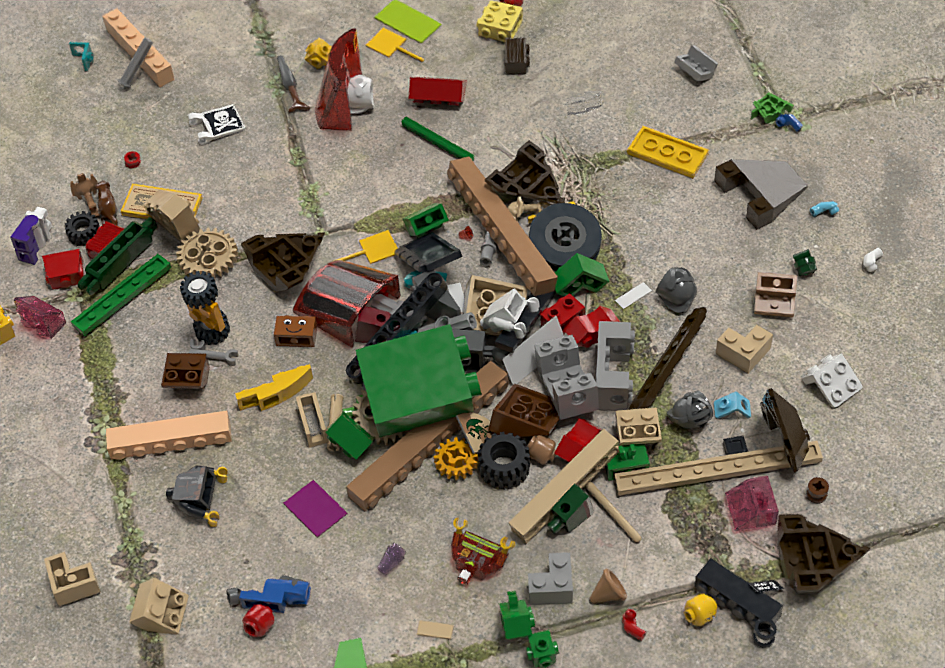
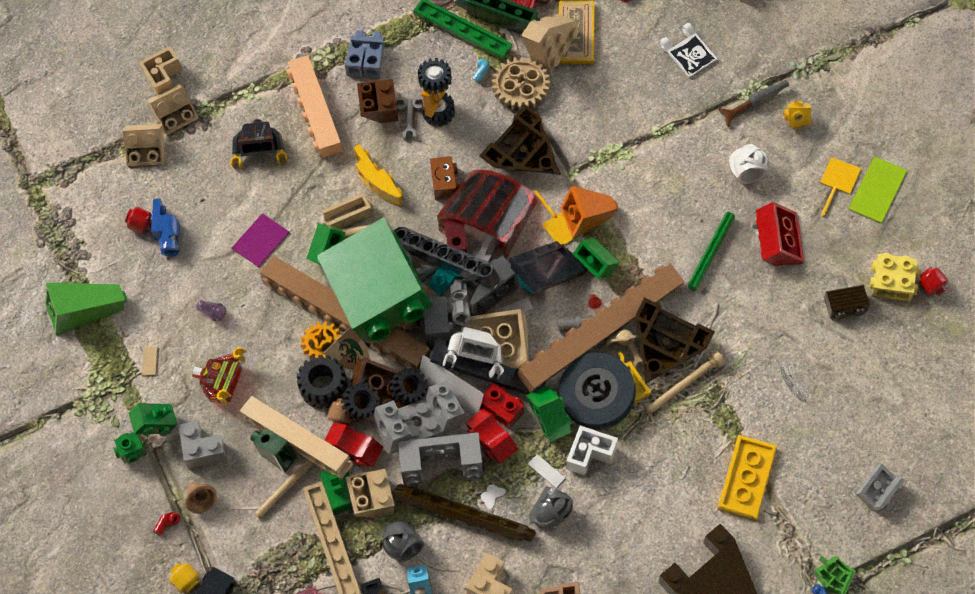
camera: 80 degrees right, 10 degrees up
(119, 573) = (172, 109): none -> tan slope
(121, 381) = (365, 47): none -> sand blue hips
(173, 282) = (481, 72): none -> medium azure arm
(233, 596) = (163, 195): dark grey hinge -> none
(332, 102) = (754, 123): clear red windscreen -> none
(372, 221) = (586, 210): none -> orange slope
(527, 385) = (416, 378): none -> black tyre
(542, 417) = (352, 409): none -> black tyre
(551, 155) = (715, 360): none -> tan piece
(622, 252) = (590, 445): none -> white brick
(650, 342) = (492, 493): none -> white sticker

